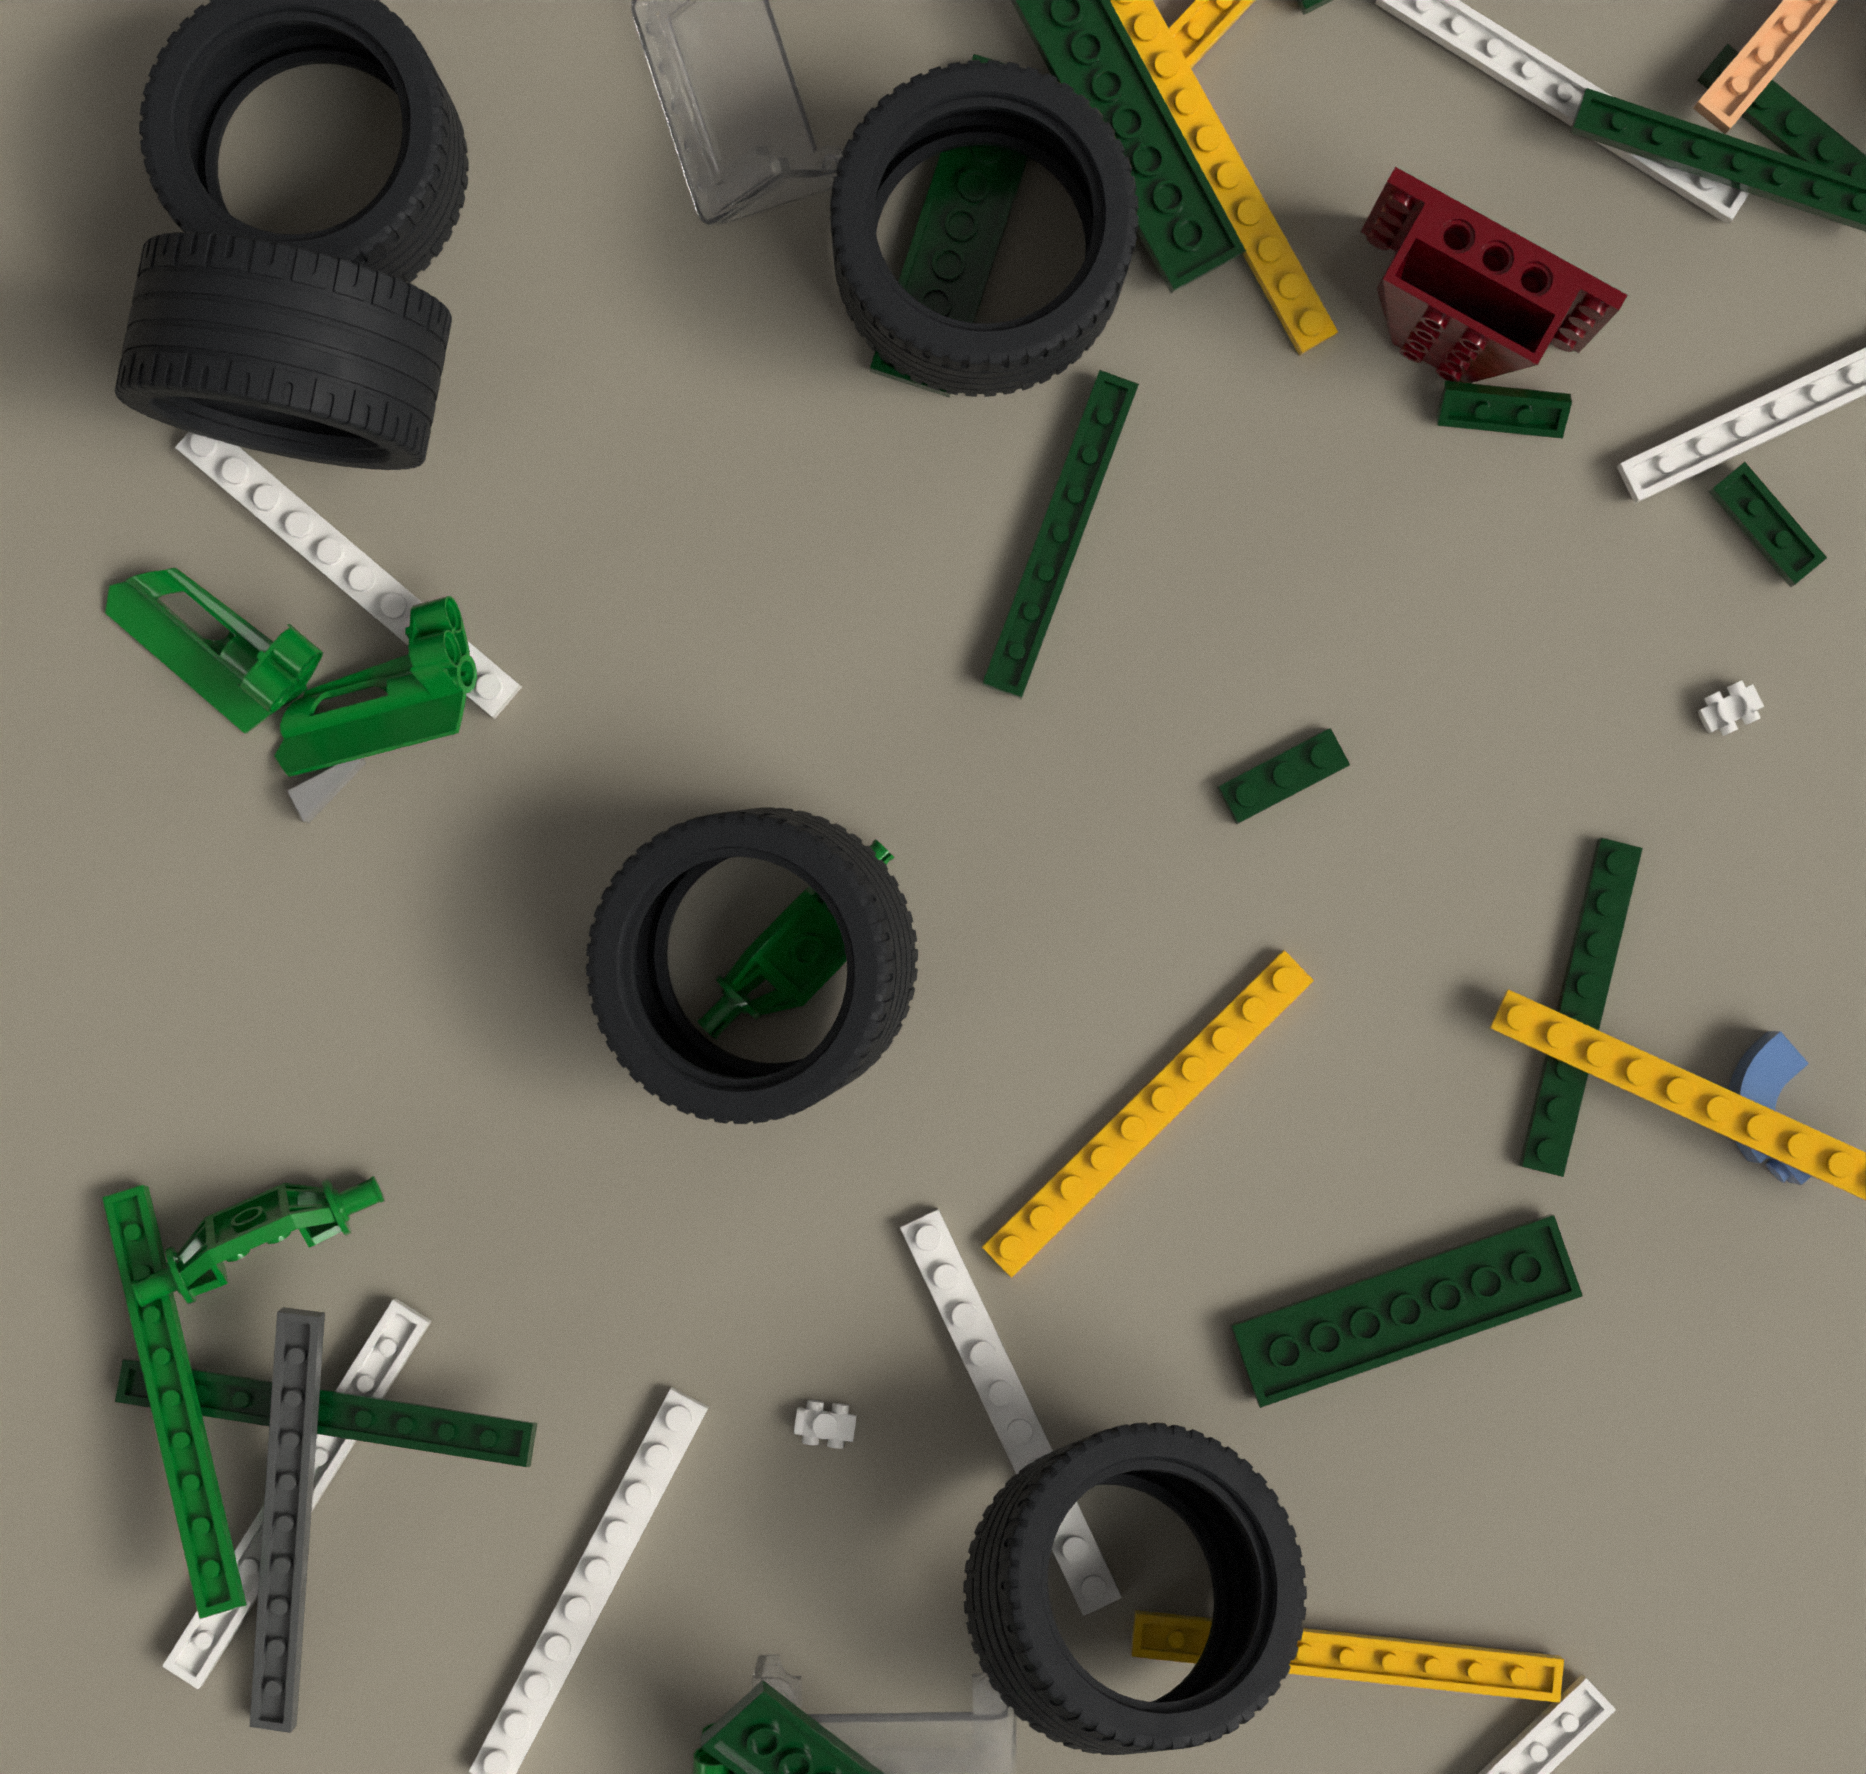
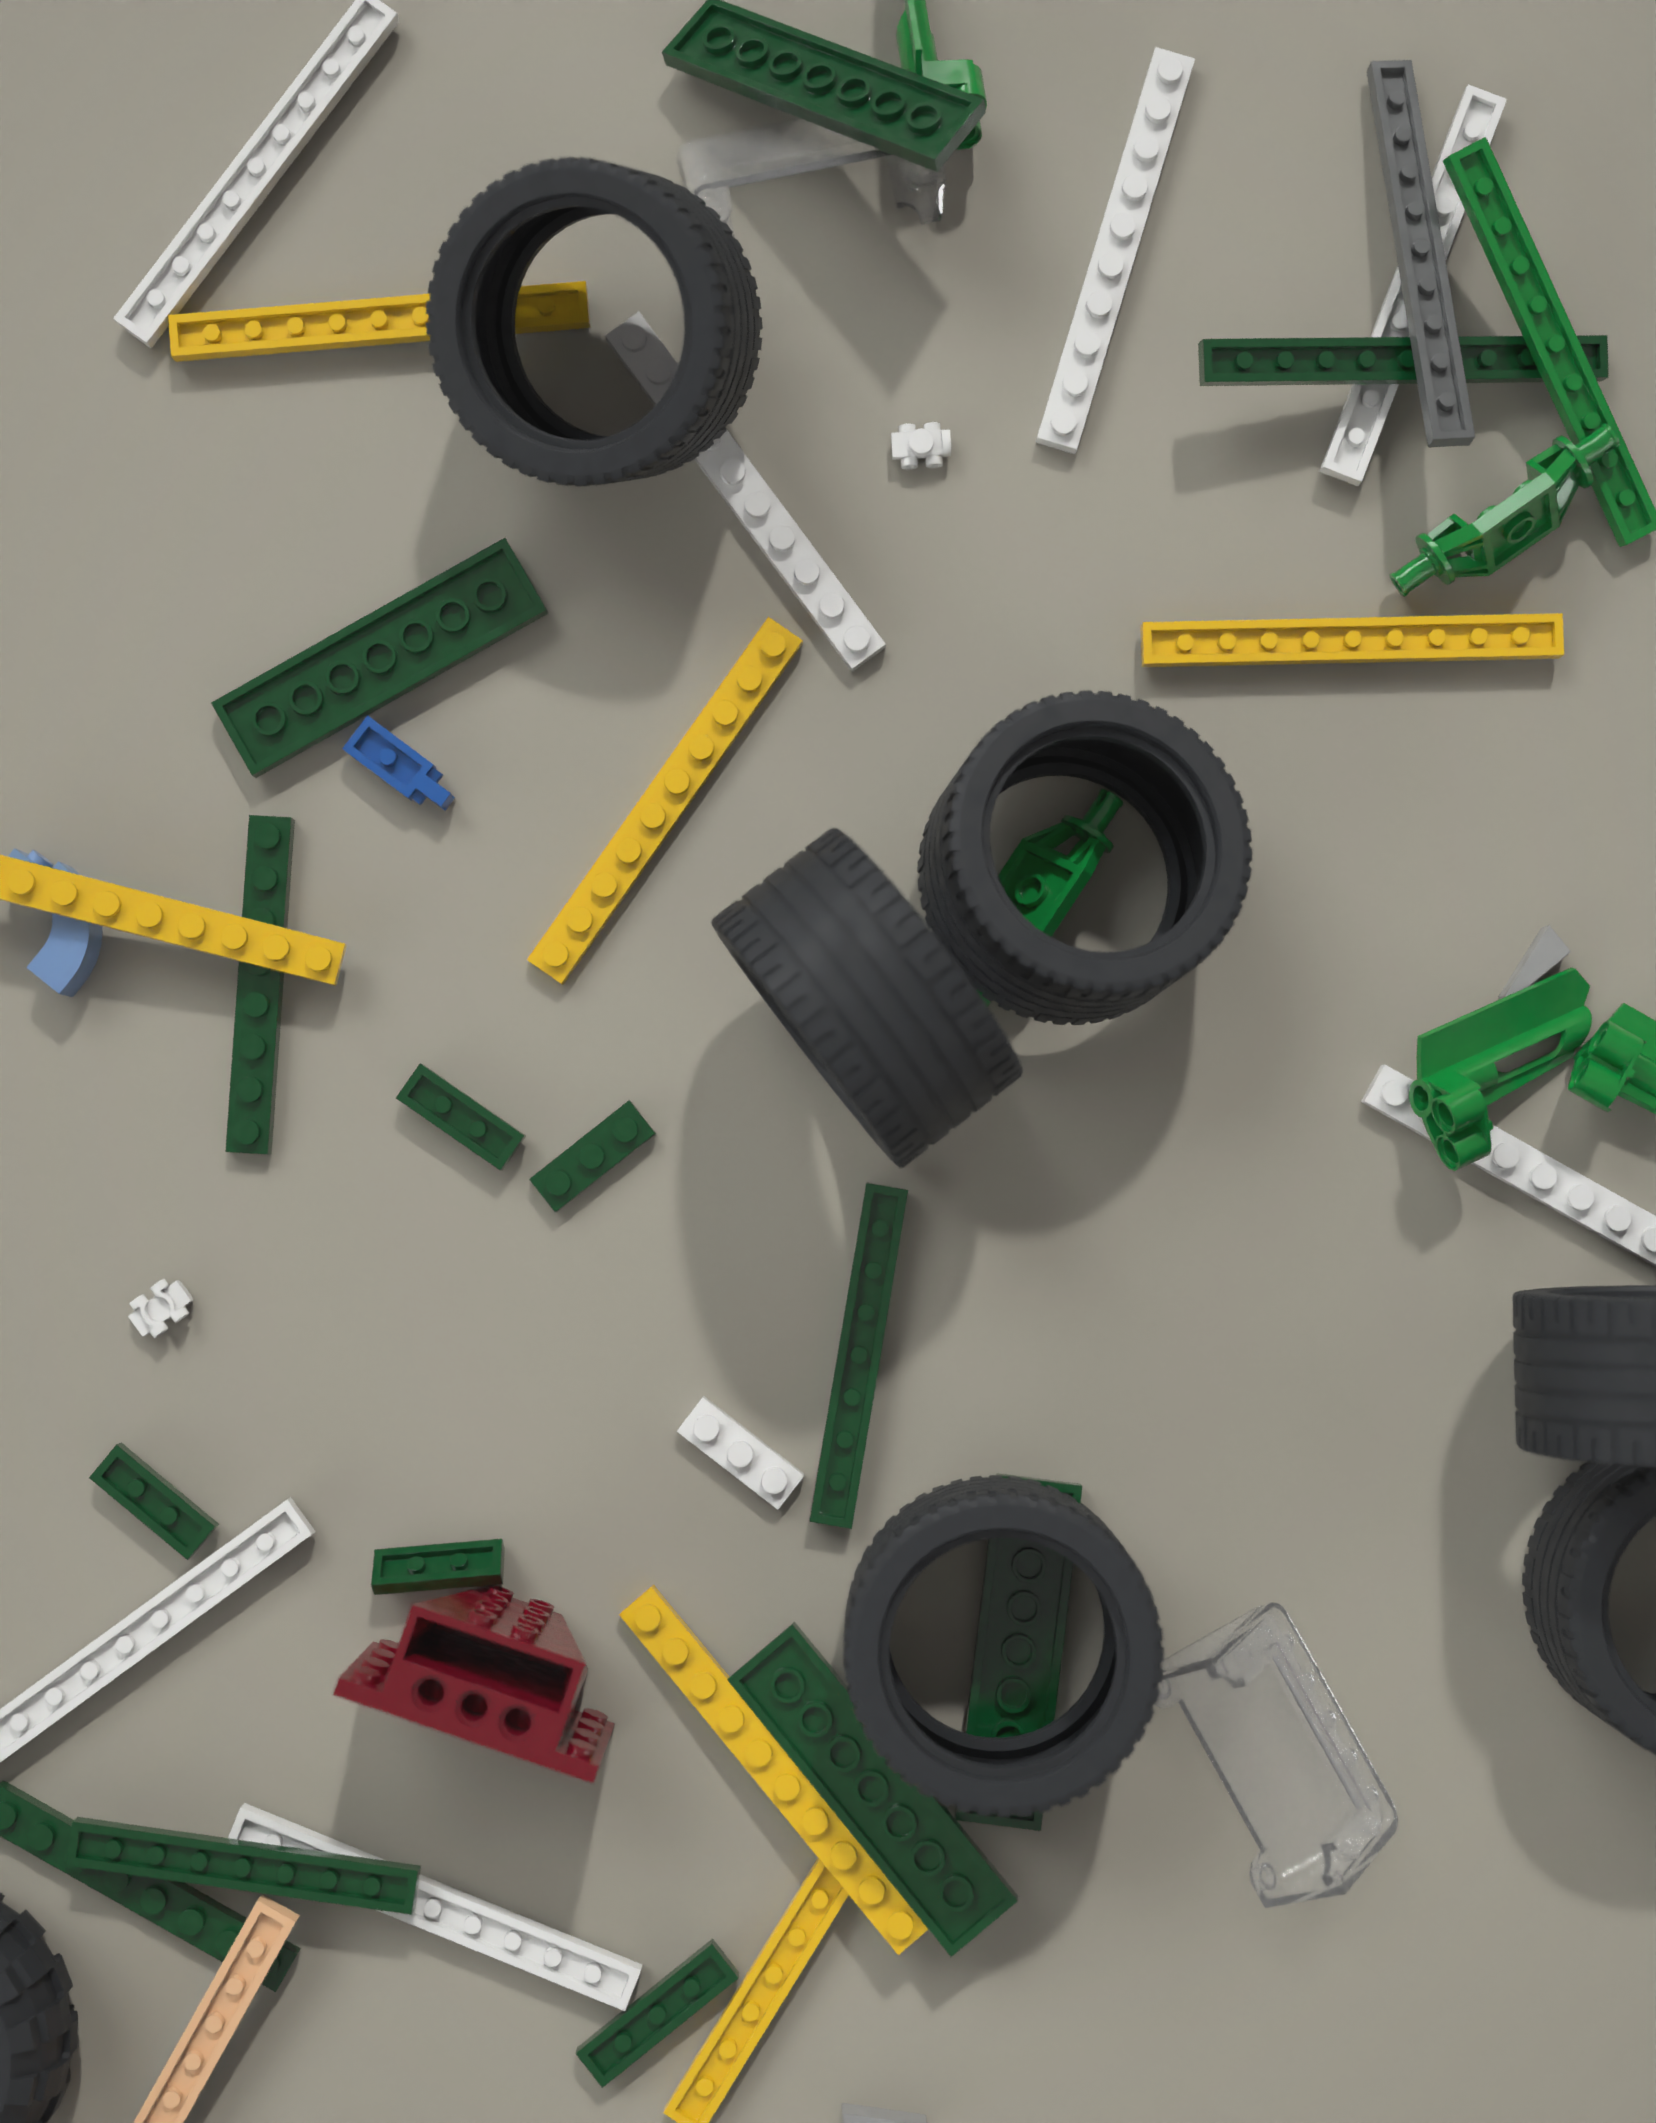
camera: 160 degrees right, 0 degrees up
(435, 1142) = (1352, 640): none -> yellow plate
(997, 860) = (869, 995): none -> black tyre
(1192, 463) = (740, 1452): none -> white plate
(1406, 838) = (461, 1116): none -> dark green plate
(1407, 1199) = (397, 764): none -> blue hinge

